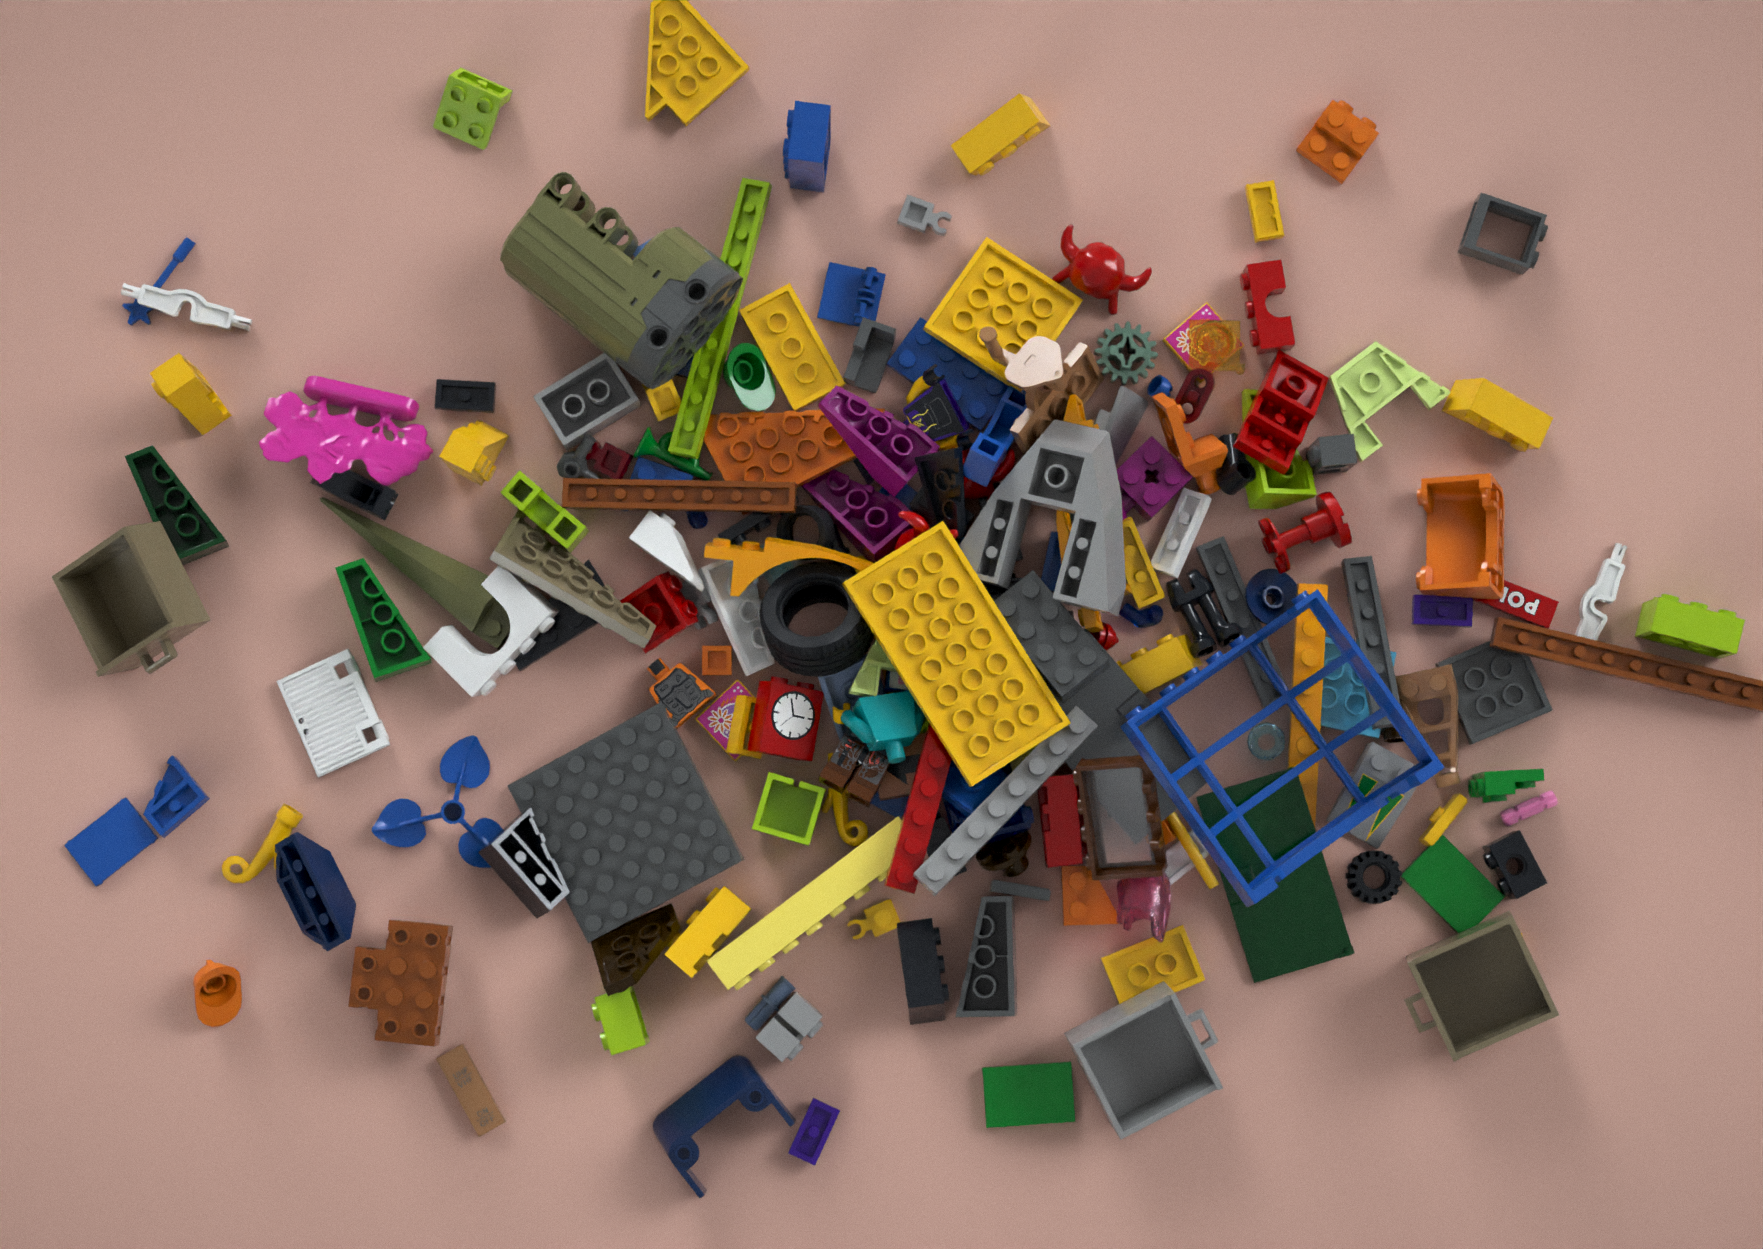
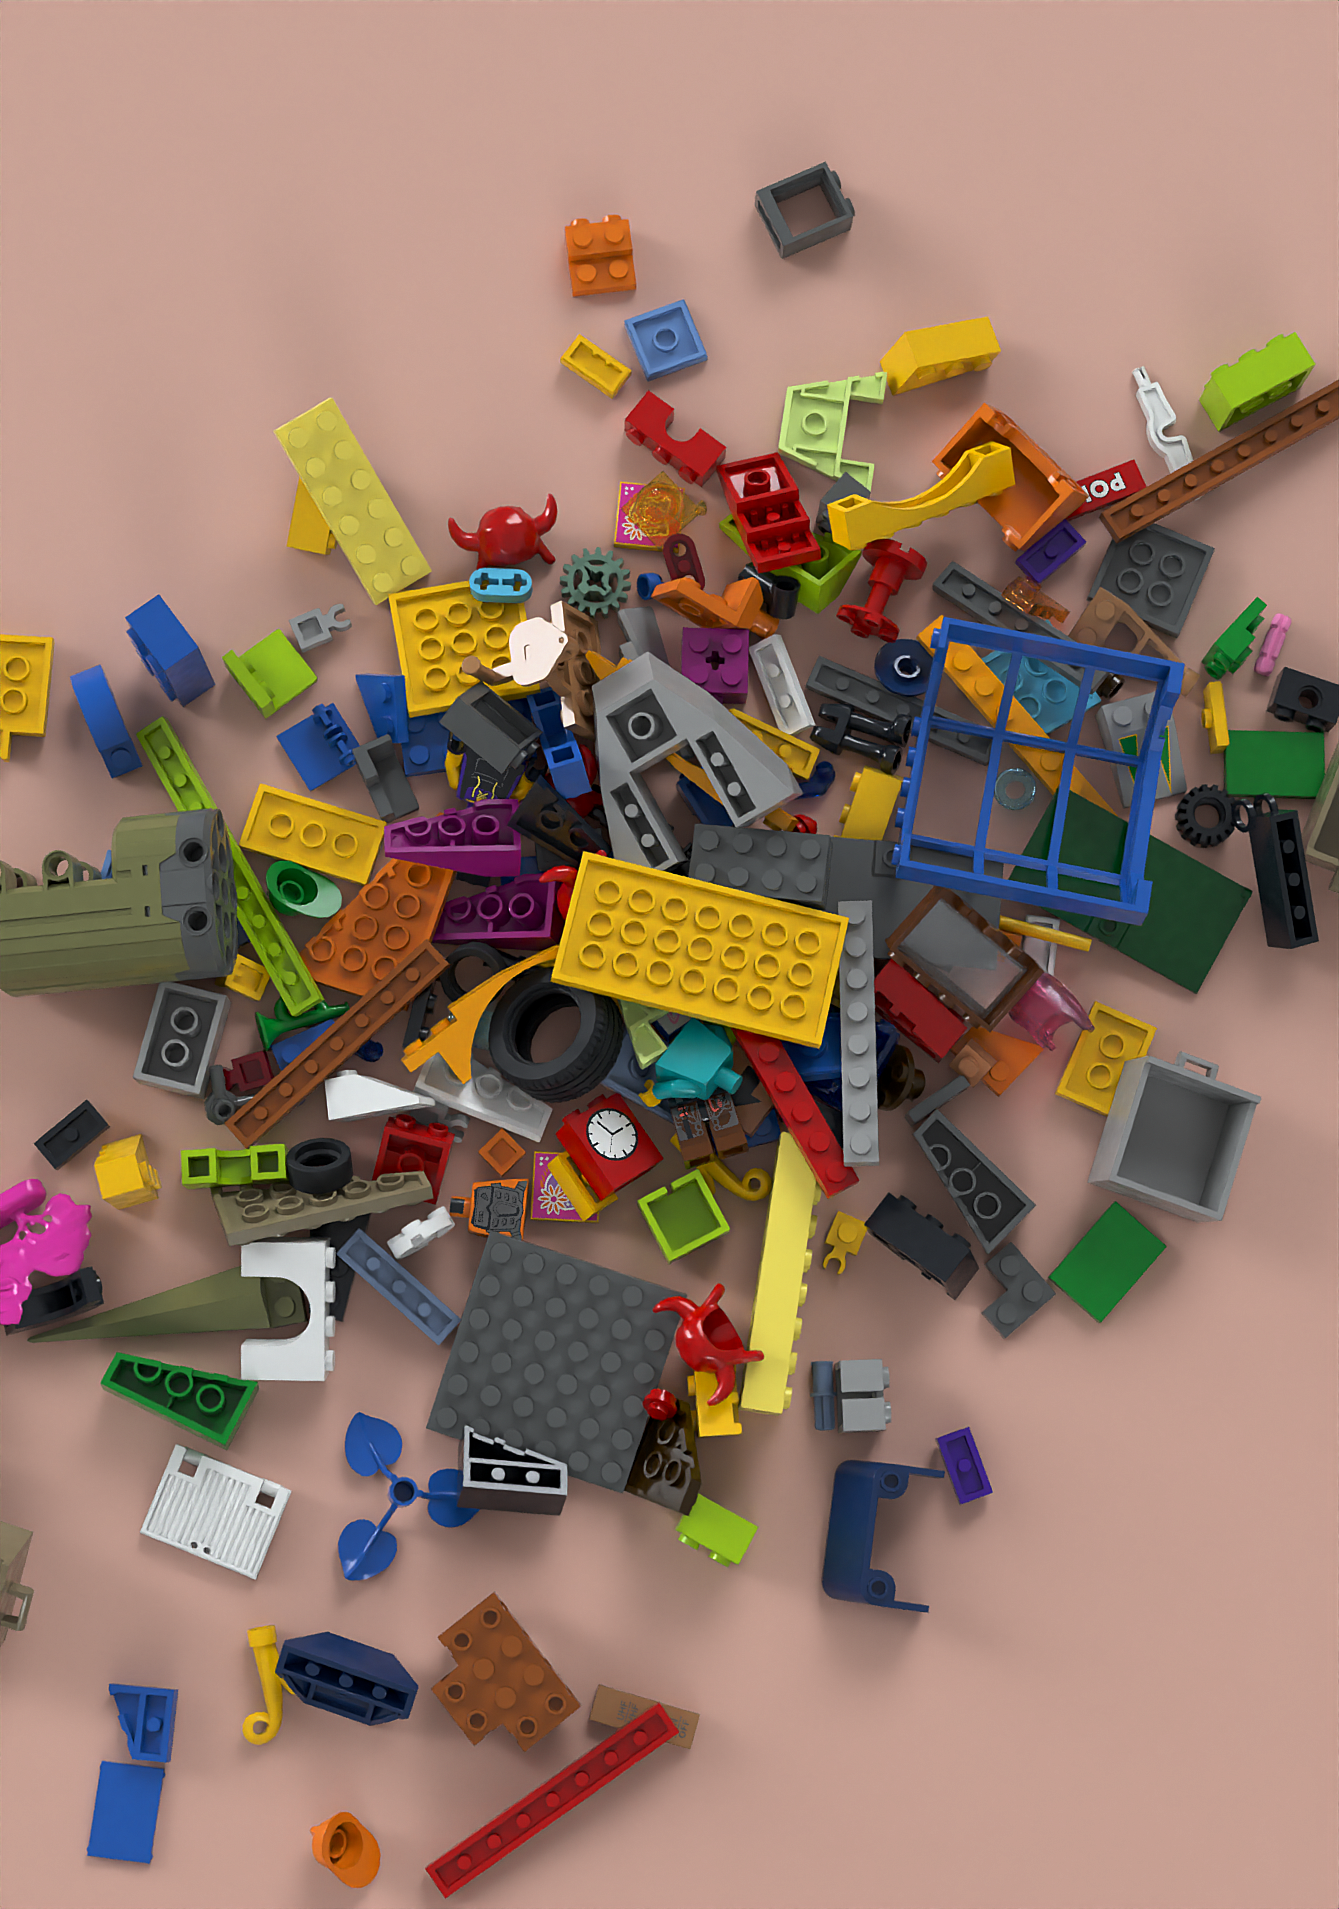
camera: 45 degrees left, 5 degrees down
(367, 1084) = (552, 1799): none -> red plate
(573, 682) = (398, 1286): none -> sand blue plate
(587, 570) = (320, 1179): none -> black tyre
(616, 663) = (418, 1234): none -> white plate
(661, 911) = (660, 1404): none -> red plate
(727, 901) = (709, 1340): none -> red piece
(730, 151) = (105, 721): none -> blue arch
(864, 218) = (270, 672): none -> lime bracket
(916, 307) = (385, 704): none -> blue wing
(956, 1063) = (1024, 1290): none -> dark grey plate
(963, 387) = (492, 728): none -> dark grey window
(1018, 155) = (352, 500): none -> light yellow plate
(1060, 304) = (501, 585): none -> medium azure beam
(1065, 888) = (972, 1062): none -> nougat plate
(1327, 236) = (665, 340): none -> medium blue tile
(1381, 958) = (1279, 872): none -> black hinge
(1396, 630) = (1027, 596): none -> clear orange wing
(1439, 515) = (977, 474): none -> yellow arch

